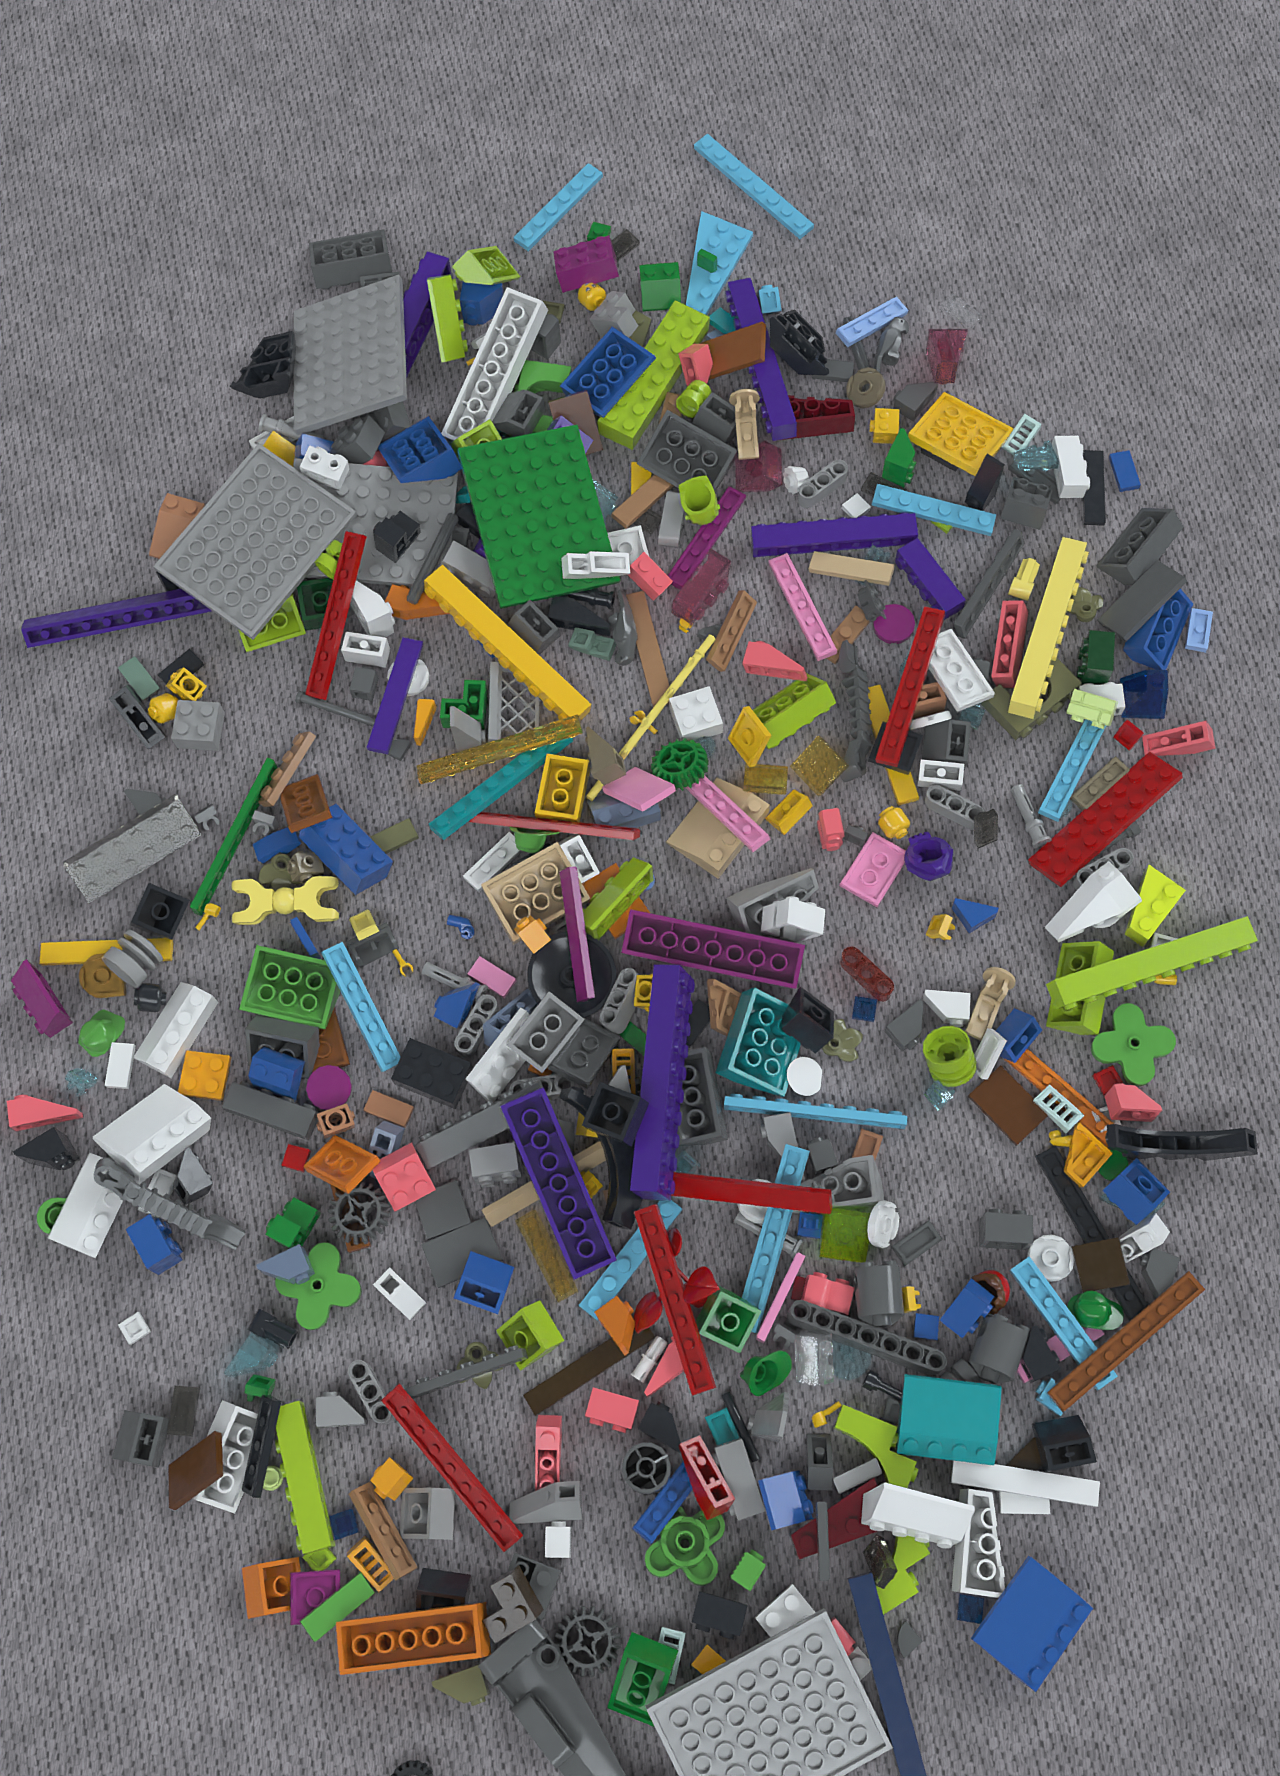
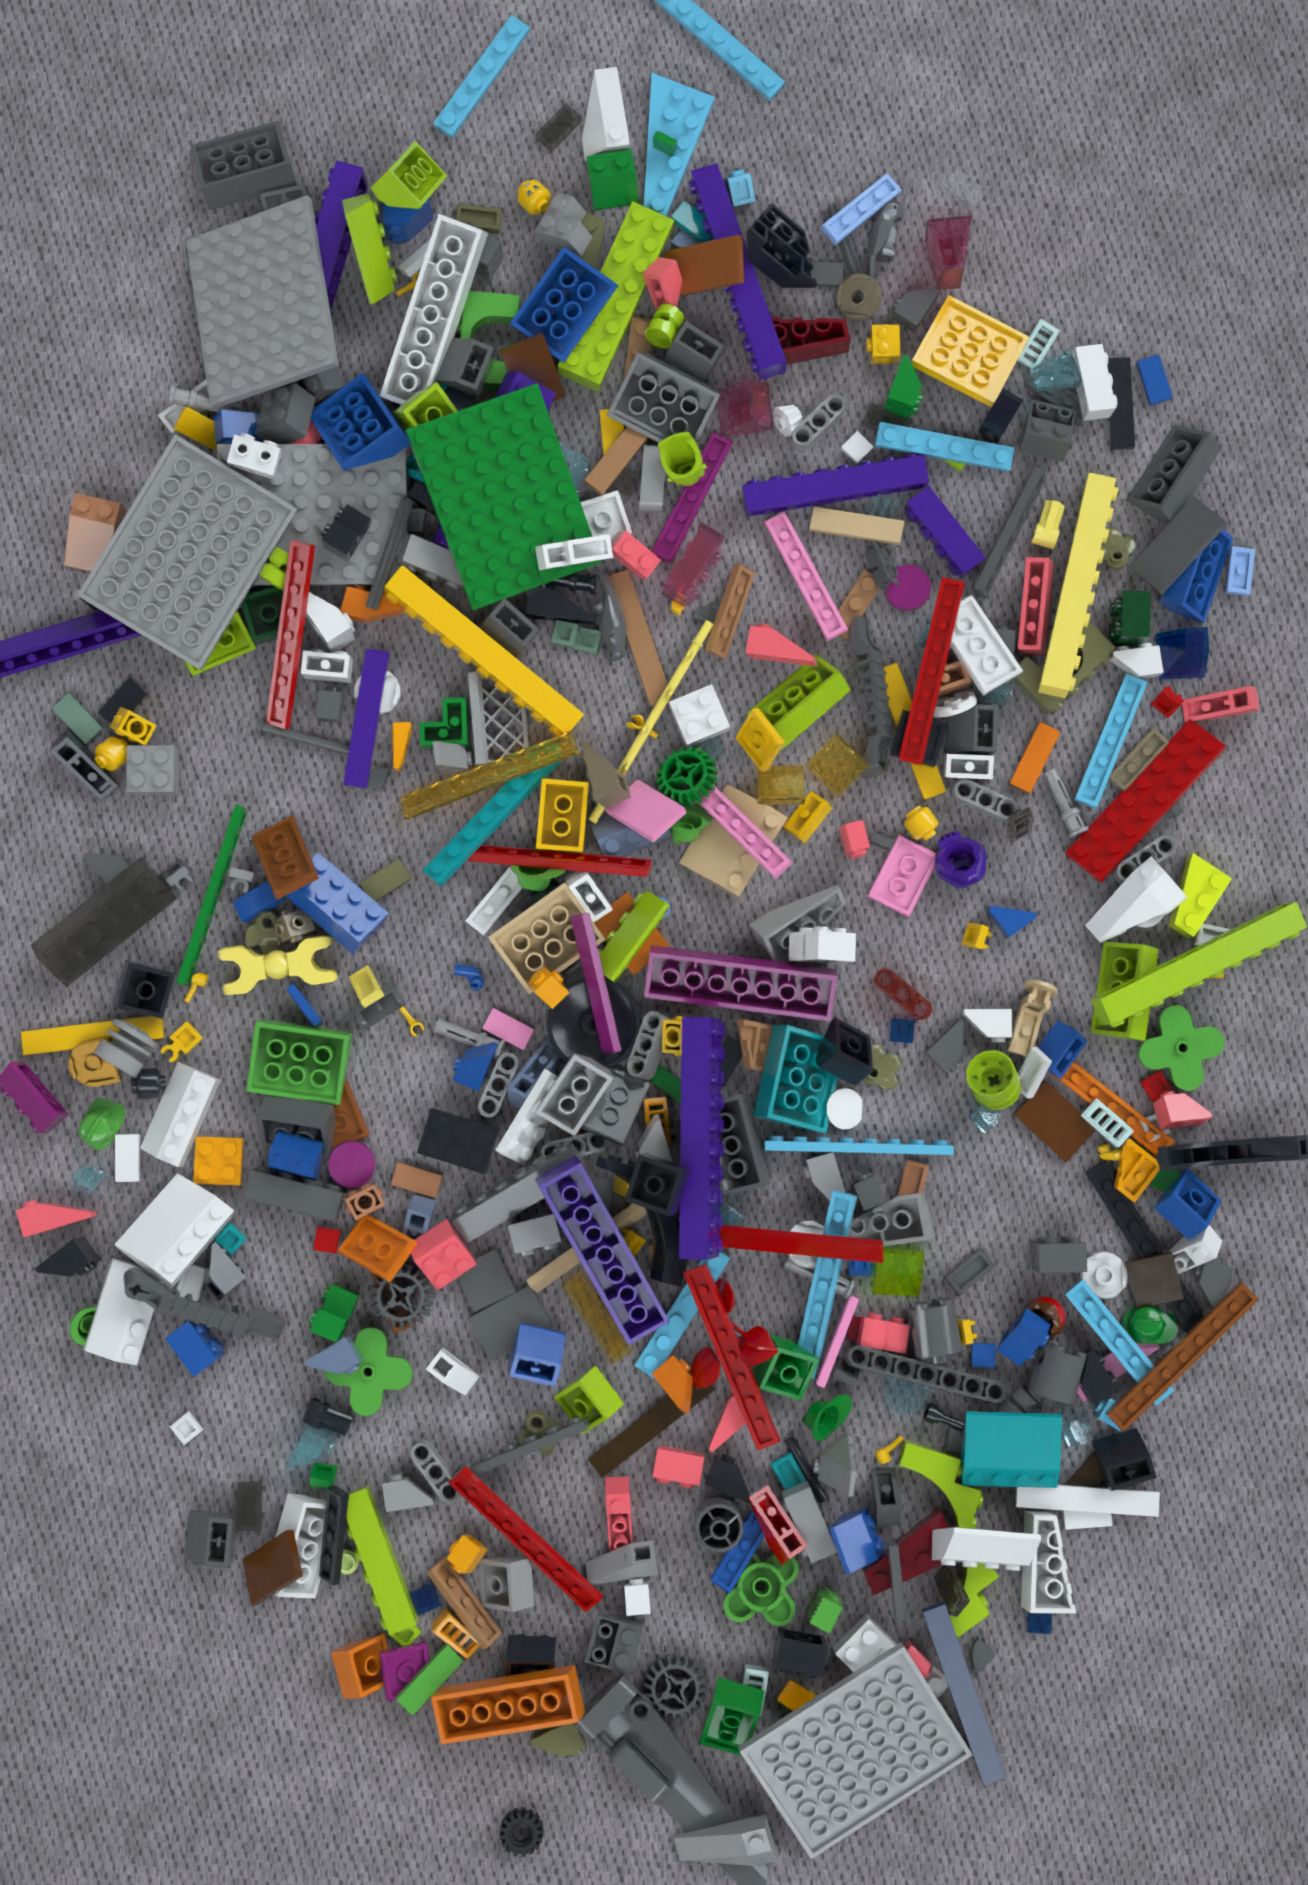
camera: 15 degrees left, 15 degrees up
(189, 961) = (184, 1039): none -> yellow plate
(205, 1149) = (230, 1238): none -> teal tile
(270, 367) = (169, 319): black wedge -> none
(283, 774) = (258, 814): medium nougat plate -> none
(361, 1006) = (376, 1078): medium azure plate -> none
(517, 1605) = (604, 1670): brick -> none
(585, 263) = (523, 158): magenta brick -> none
(598, 230) = (533, 110): green plate -> none
(649, 1359) = (710, 1413): white axle -> none
(659, 239) = (605, 116): none -> white wedge
(677, 806) = (690, 825): none -> bright green piece
(745, 419) = (728, 361): tan piece -> none
(814, 1358) = (874, 1400): clear brick -> none
(856, 1476) = (923, 1508): light grey slope -> none
(883, 1224) = (935, 1259): white tile -> none
(1003, 775) = (1034, 757): none -> orange tile
(1014, 1411) = (1074, 1432): none -> clear light blue tile
(1032, 1623) = (1099, 1633): blue slope -> none
(1091, 707) = (1127, 678): yellowish green brick -> none

